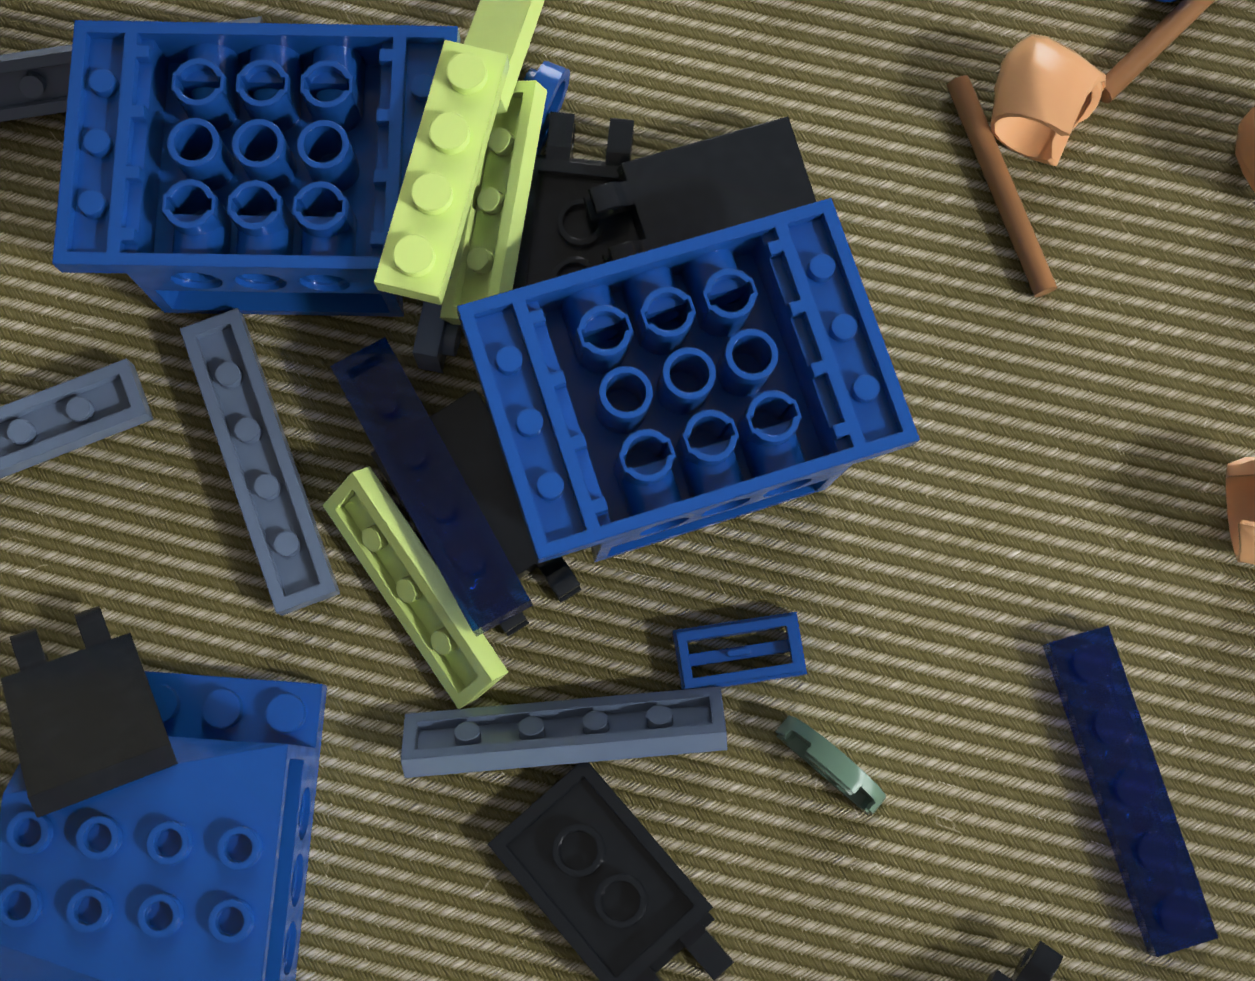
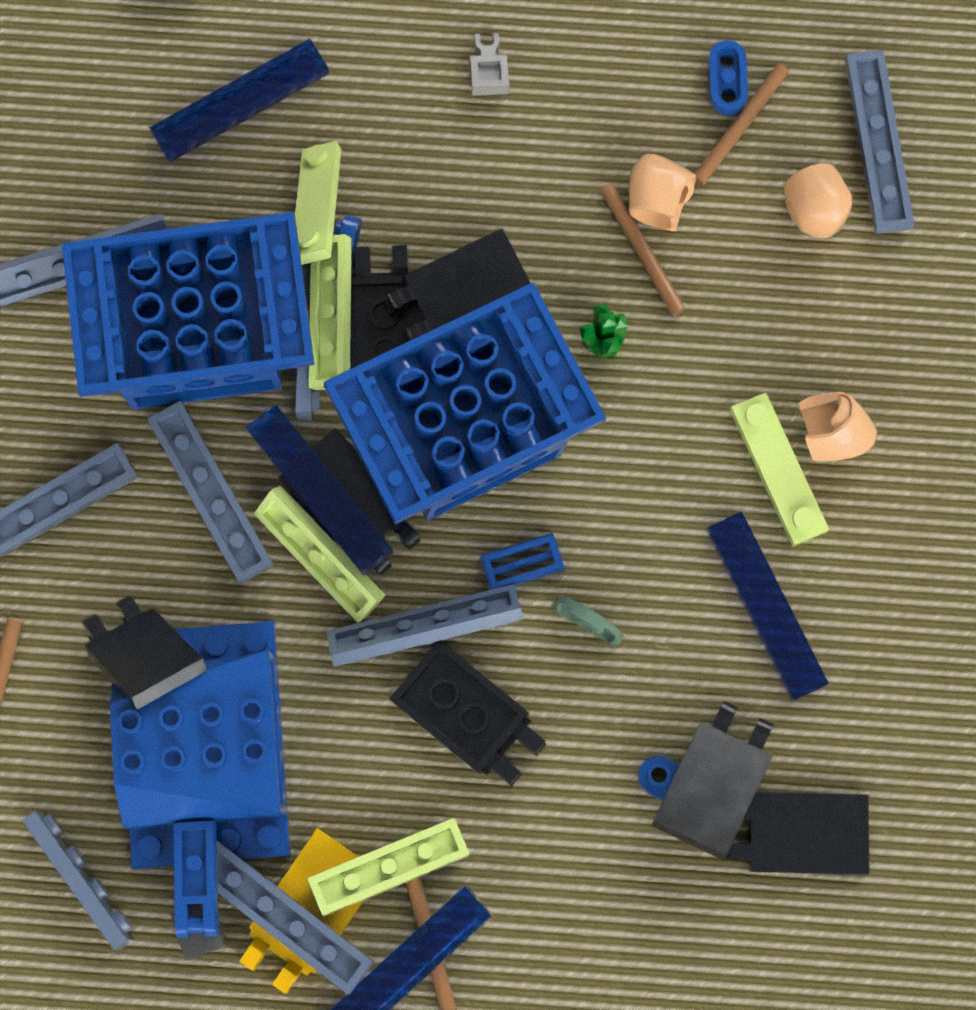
camera: 10 degrees left, 0 degrees up
(442, 173) = (301, 303): yellowish green plate -> none
(928, 303) = (605, 332): none -> green rock
(1176, 567) = (779, 469): none -> yellowish green plate

